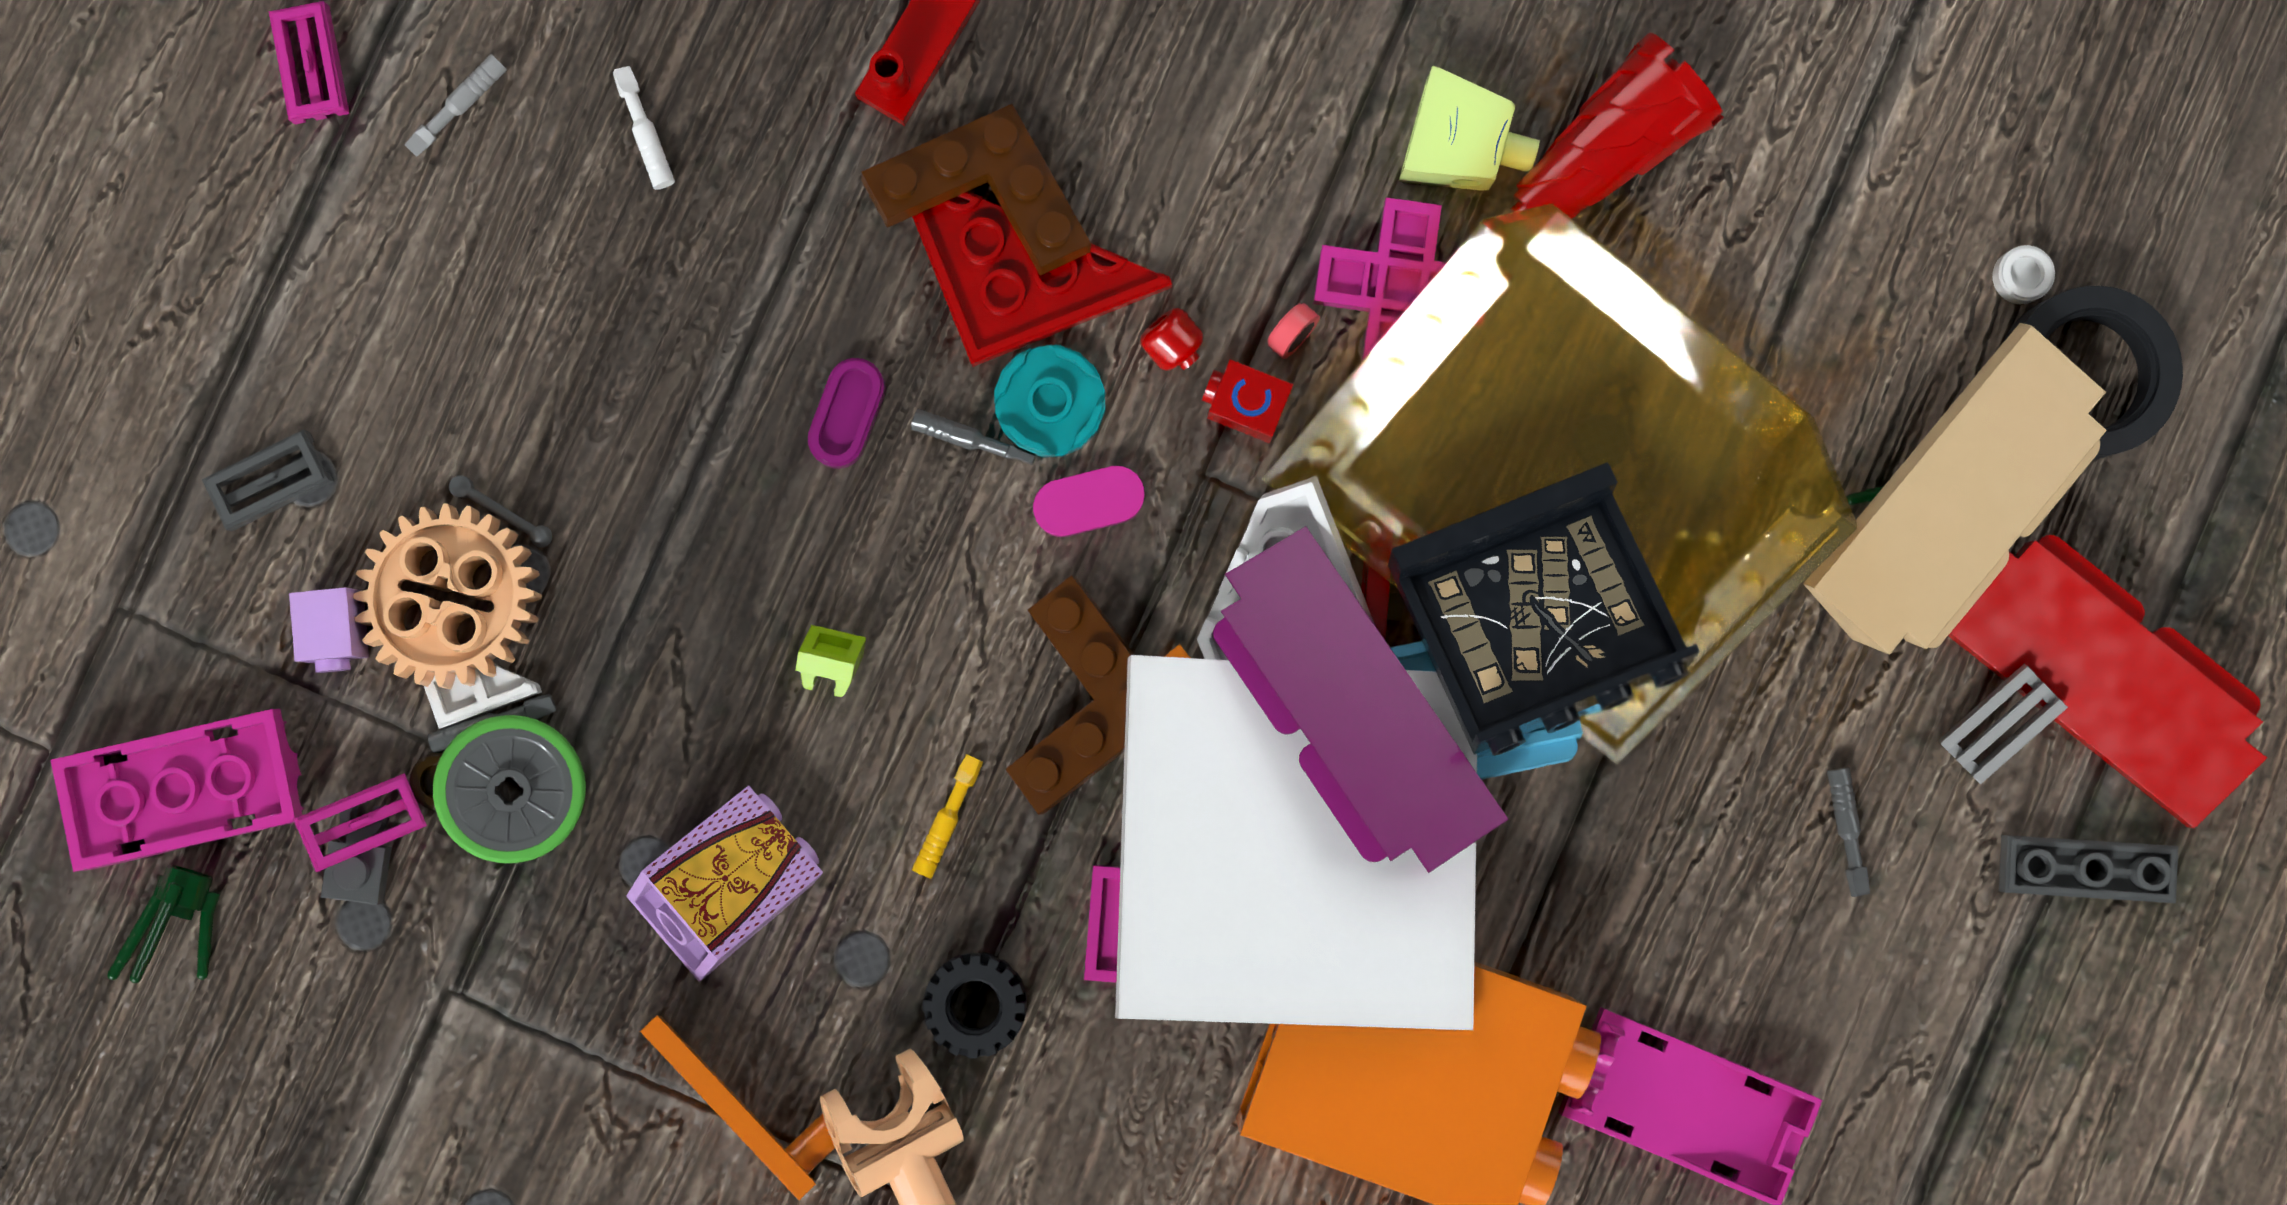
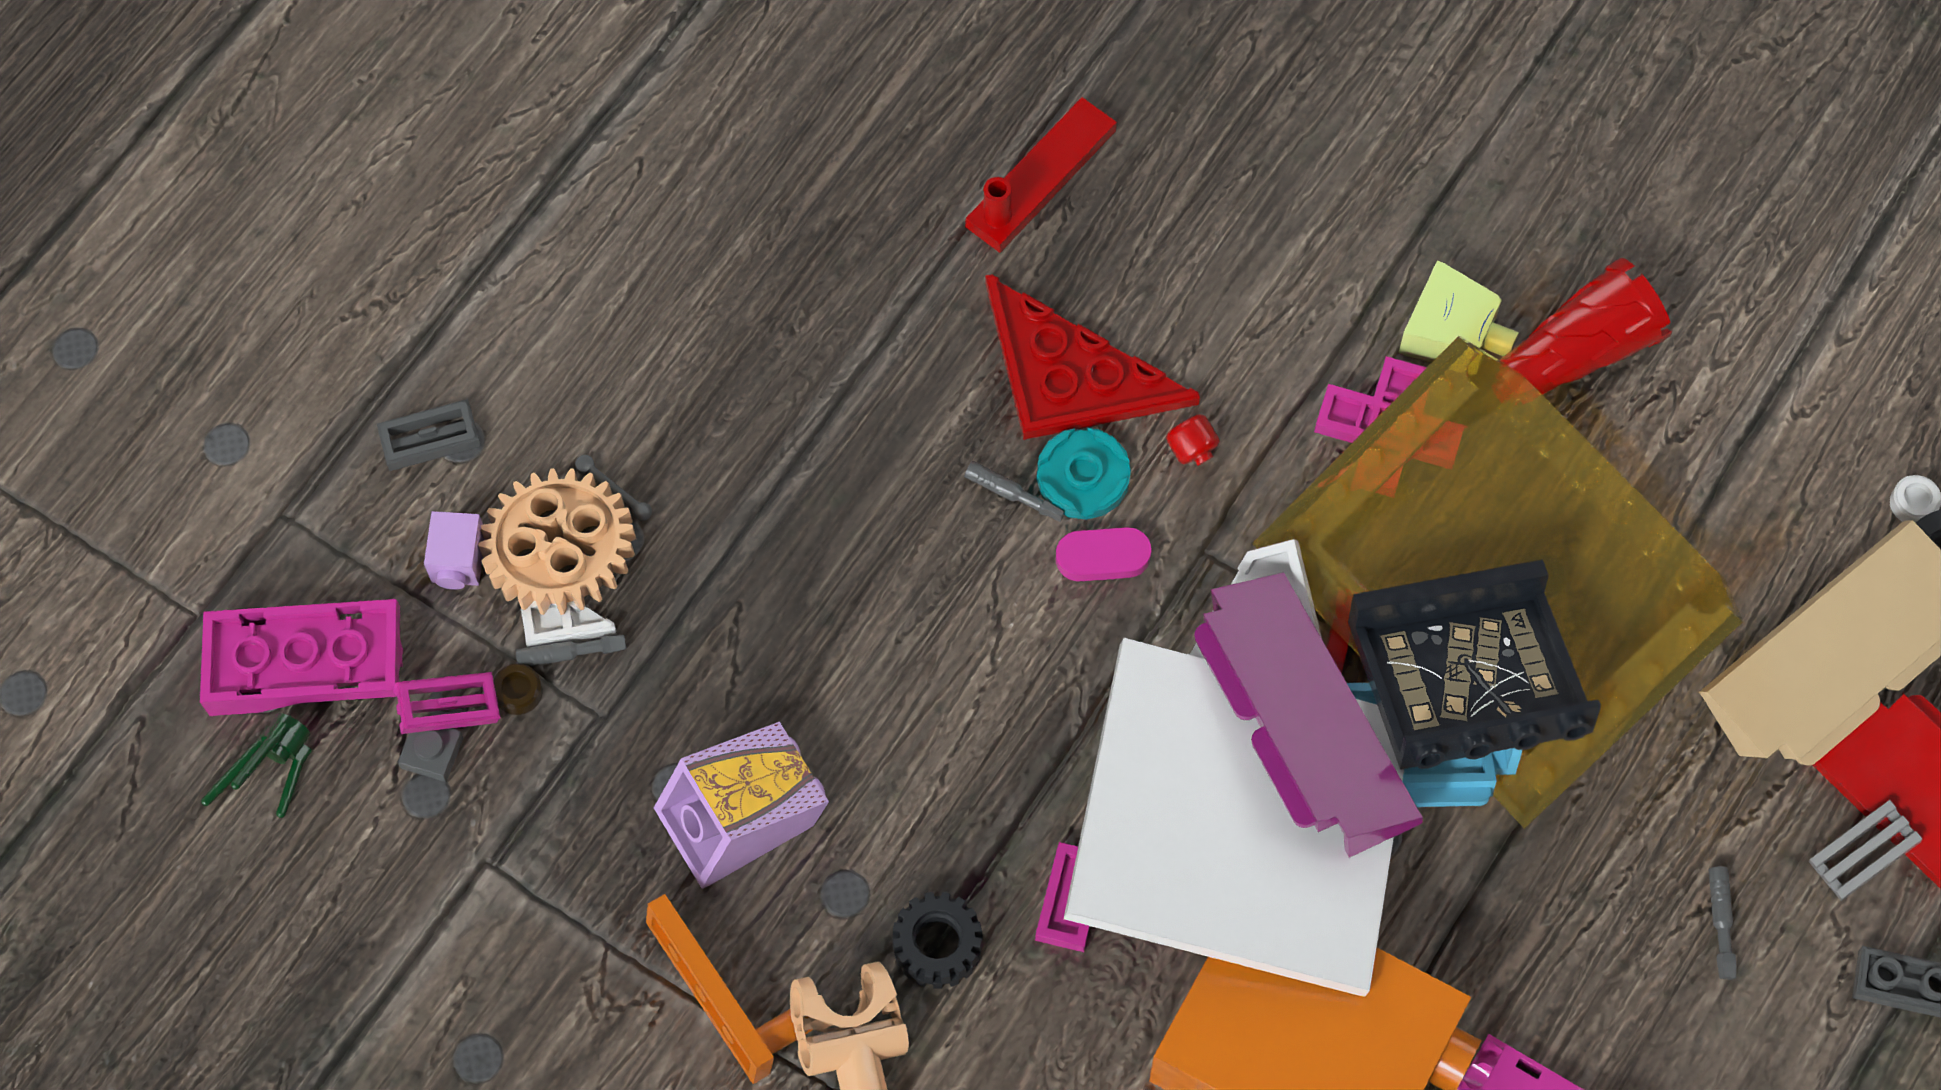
camera: 10 degrees right, 20 degrees down
(319, 107) = (533, 166): dark pink tile -> none
(457, 103) = (645, 181): light grey piece -> none
(537, 761) = (594, 728): dark grey wheel -> none
(644, 130) = (789, 223): white piece -> none
(830, 656) = (864, 634): lime tile -> none
(846, 413) = (913, 456): magenta tile -> none
(946, 819) = (938, 788): yellow piece -> none
(984, 151) = (1060, 275): reddish brown plate -> none
(1098, 730) = (1076, 734): reddish brown plate -> none
(1246, 400) = (1248, 493): red brick -> none
(1293, 330) = (1294, 446): coral tile -> none

